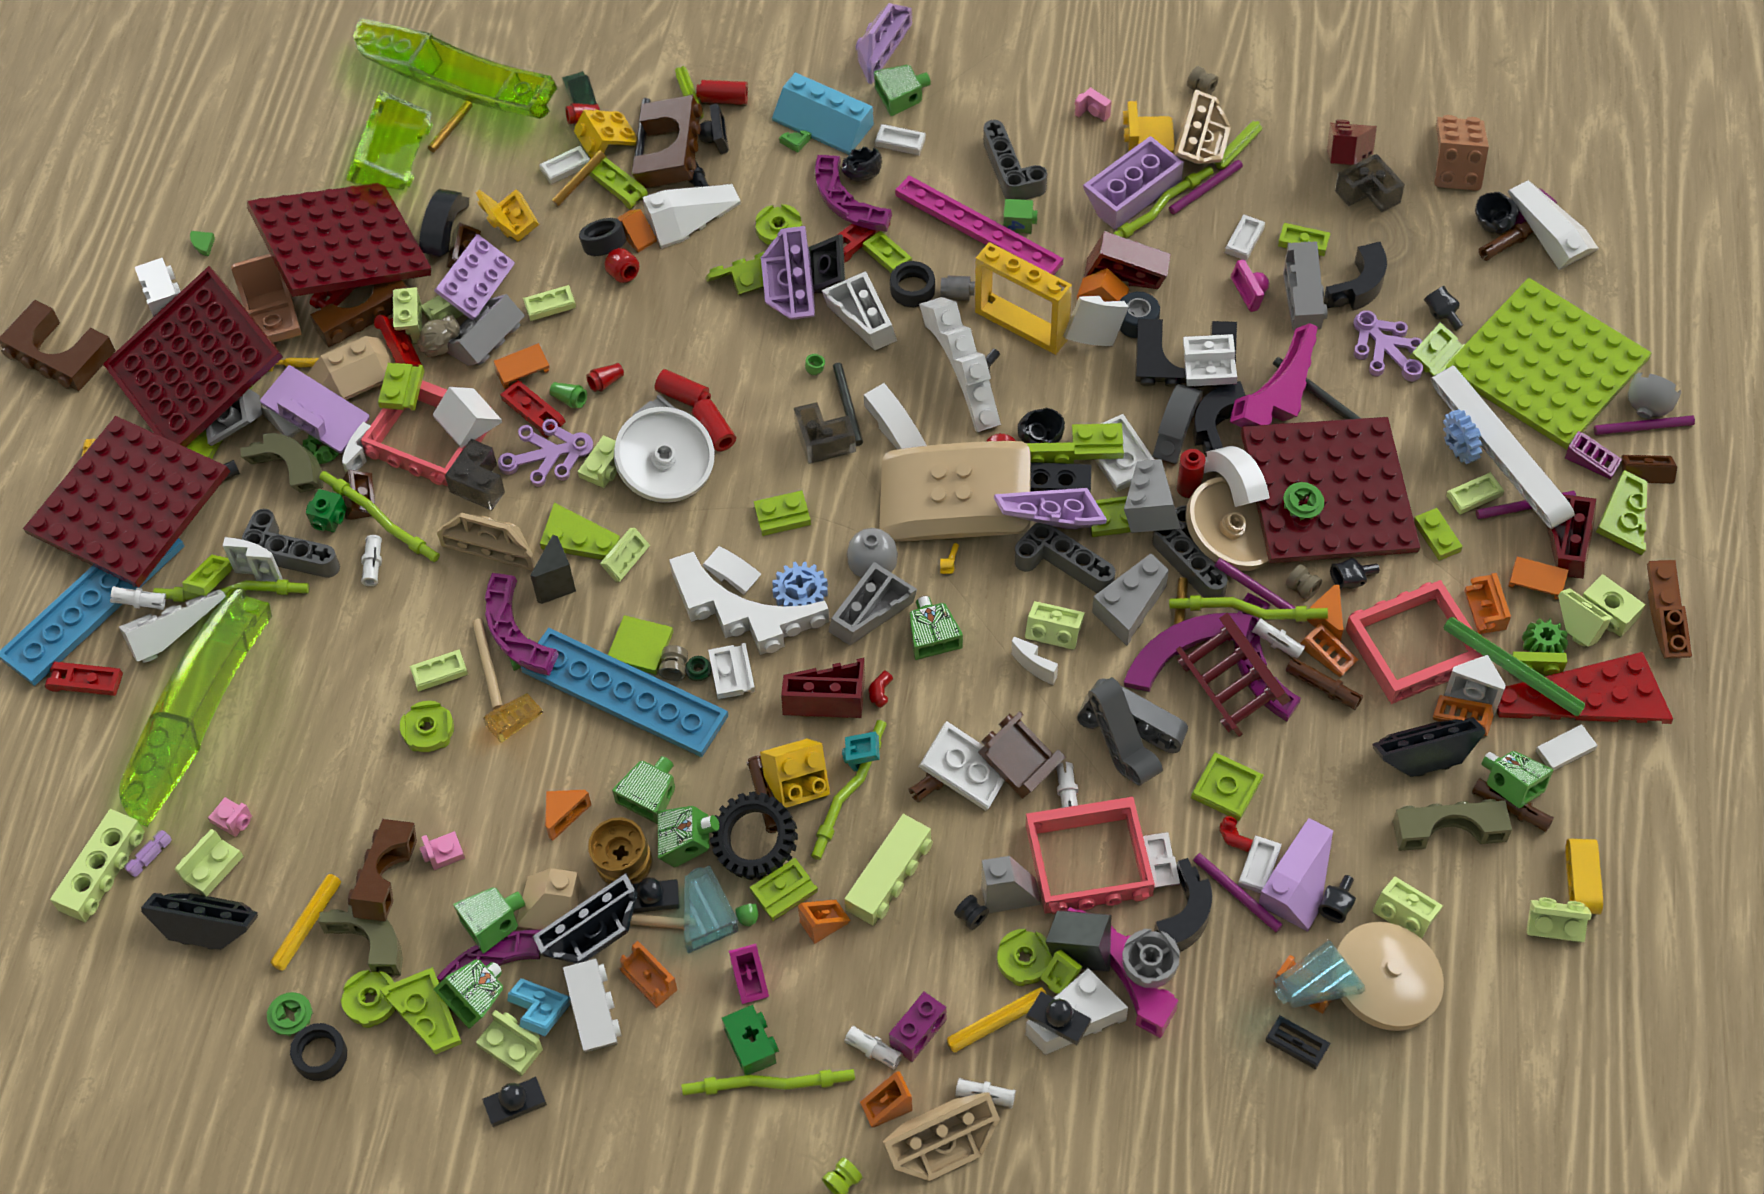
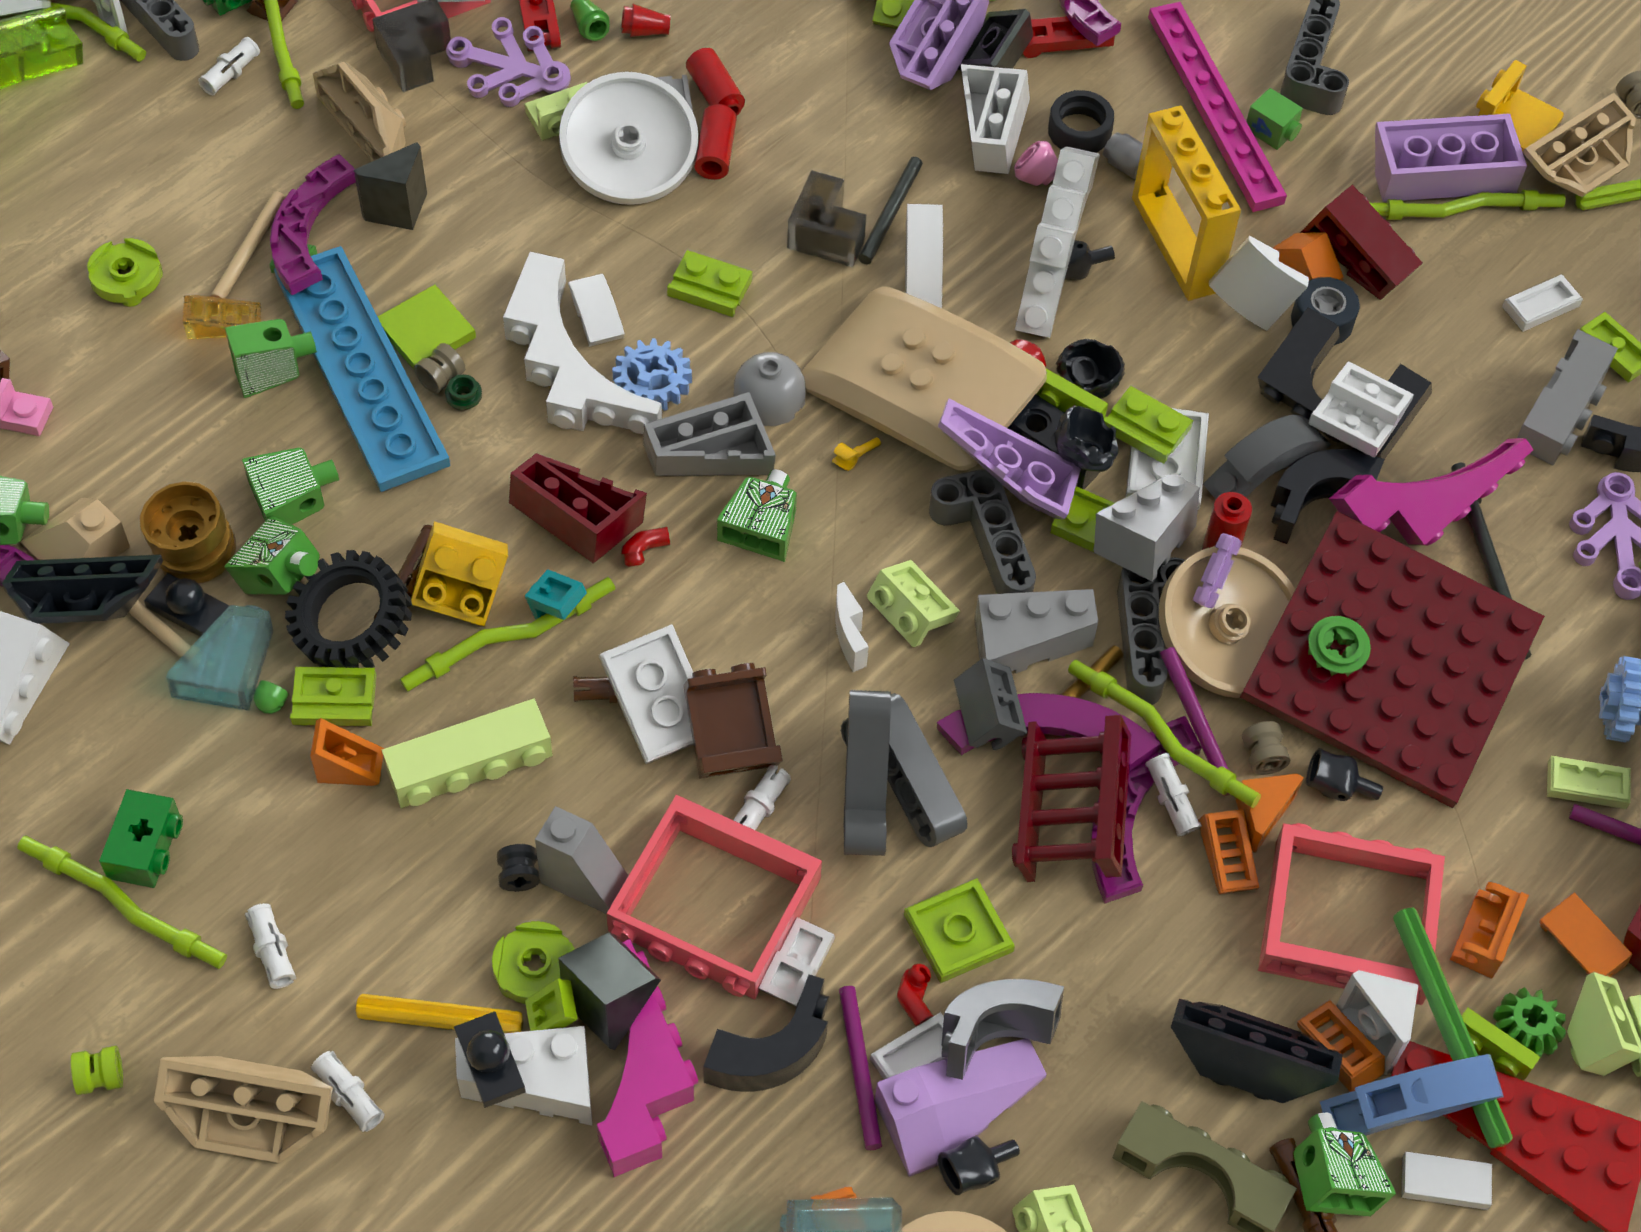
camera: 30 degrees right, 0 degrees up
(438, 670) = (190, 220): yellowish green plate -> none
(563, 809) = (177, 449): orange slope -> none
(567, 720) = (266, 354): none -> bright green torso
(578, 534) = (466, 173): lime wing -> none
(624, 554) = (493, 220): yellowish green plate -> none
(648, 975) = (103, 690): orange hinge -> none
(731, 671) = (495, 418): white plate -> none
(748, 973) = (208, 762): dark pink slope -> none
(814, 364) = (894, 146): bright green hinge -> none
(885, 251) = (1080, 67): lime plate -> none
(887, 1101) = (230, 1019): orange slope -> none
(910, 324) = (1037, 164): none -> bright pink cone
(918, 1026) = (336, 956): magenta brick -> none
(1082, 471) = (1086, 439): none -> black hair
(1094, 103) = (1477, 44): bright pink bracket -> none
(1146, 653) = (990, 704): none -> dark grey hinge
(1150, 958) = (655, 1064): light grey cylinder -> none
(1205, 187) = (1541, 217): magenta bar -> none
(1210, 500) = (1217, 570): none -> lavender axle
(1240, 472) = (1282, 563): white arch -> none
(1249, 284) = (1499, 359): dark pink tile -> none
(1287, 812) = (998, 1010): none -> dark grey arch
(1320, 681) = (1192, 896): reddish brown pin -> none
(1438, 534) = (1497, 802): lime plate -> none
(1525, 714) = (1415, 1095): none -> medium blue slope

